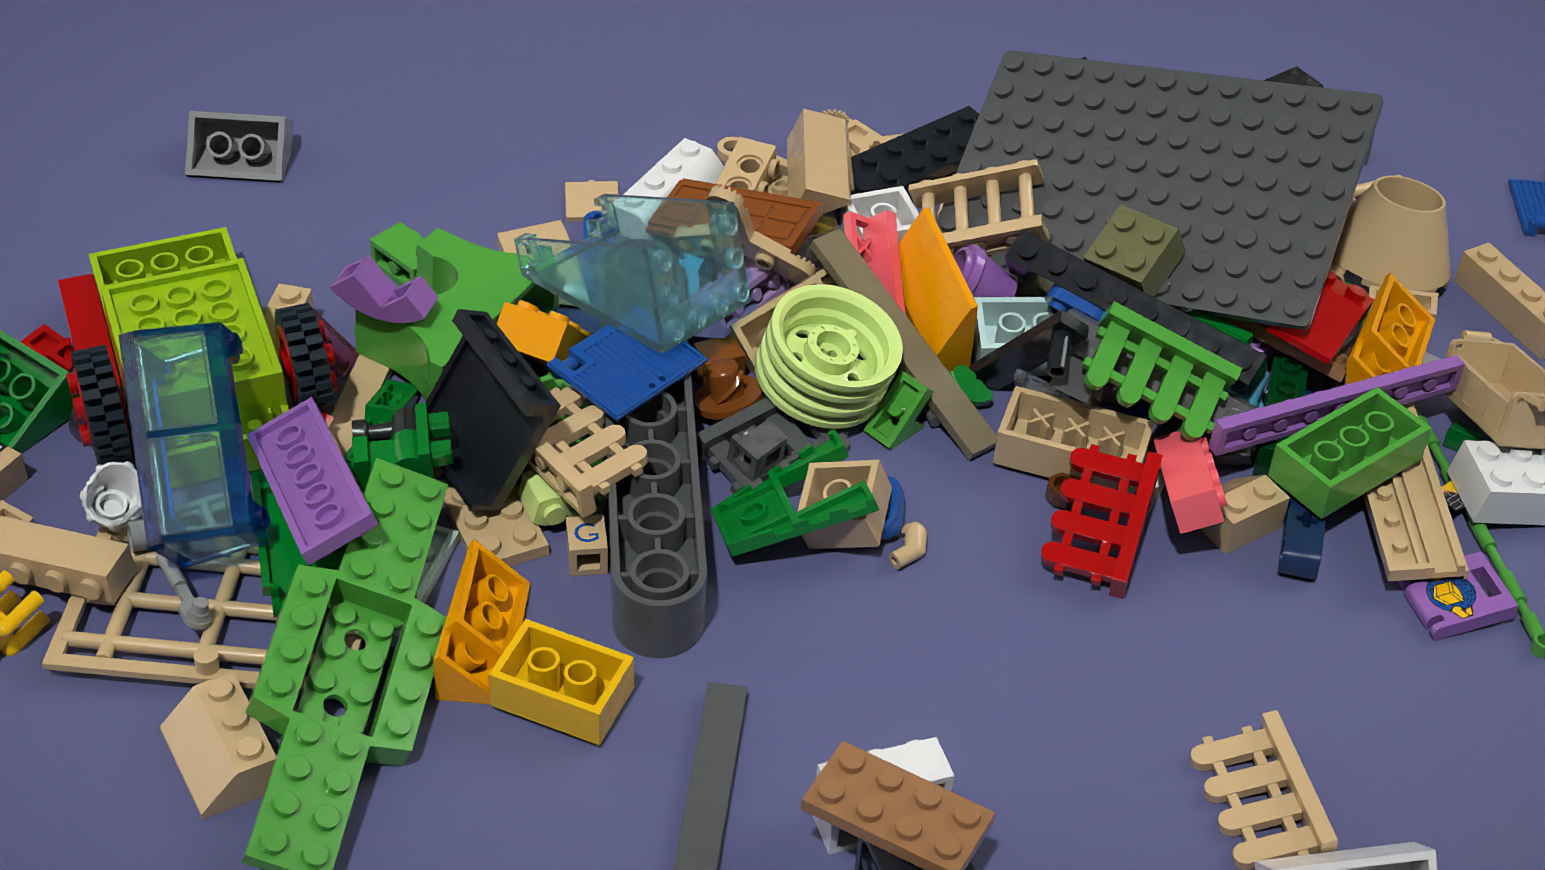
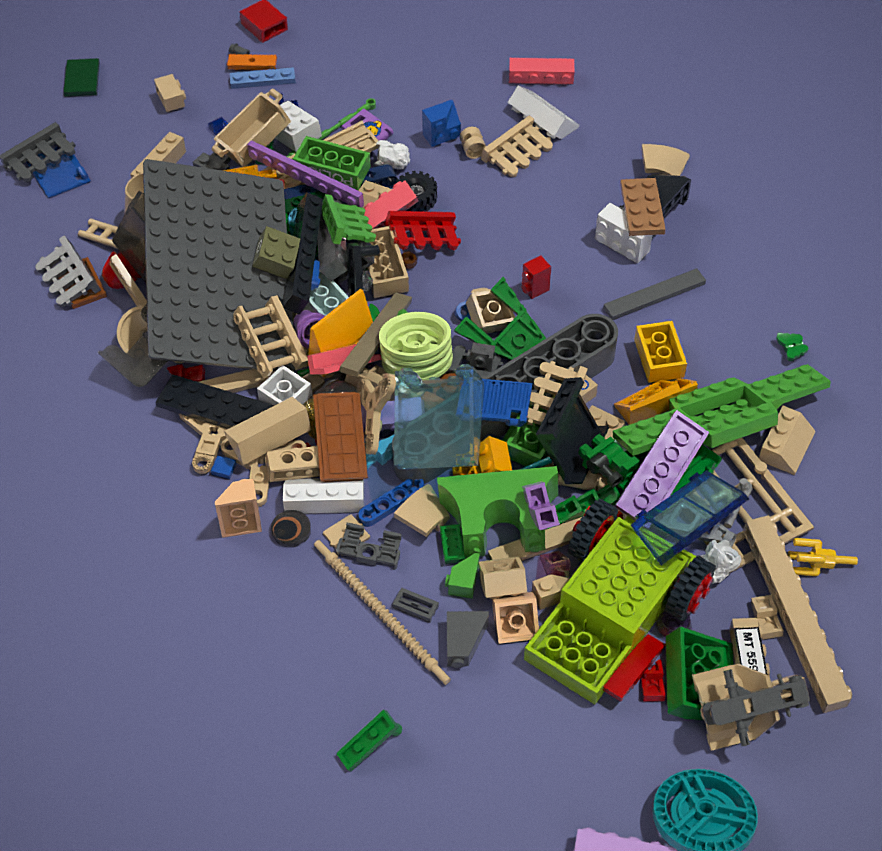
camera: 120 degrees left, 10 degrees up
(238, 145) = (439, 719): light grey slope -> none
(274, 76) = (368, 740): none -> green piece
(299, 264) = (515, 617): none -> light nougat slope
(320, 177) = (431, 664): none -> tan hose
(322, 215) = (464, 635): none -> dark grey slope
(343, 248) = (502, 577): none -> tan brick
(418, 206) = (414, 608): none -> dark grey tile
(528, 213) = (351, 546): none -> dark grey piece
(644, 152) = (291, 528): none -> tile
(702, 92) = (238, 509): none -> light nougat slope
(874, 604) = (536, 277): none -> red brick
(1227, 555) = (424, 186): none -> black bush
(1318, 721) = (472, 142): none -> tan wheel
(1349, 577) = (392, 154): none -> white hair
(1396, 687) = (440, 123): none -> blue slope

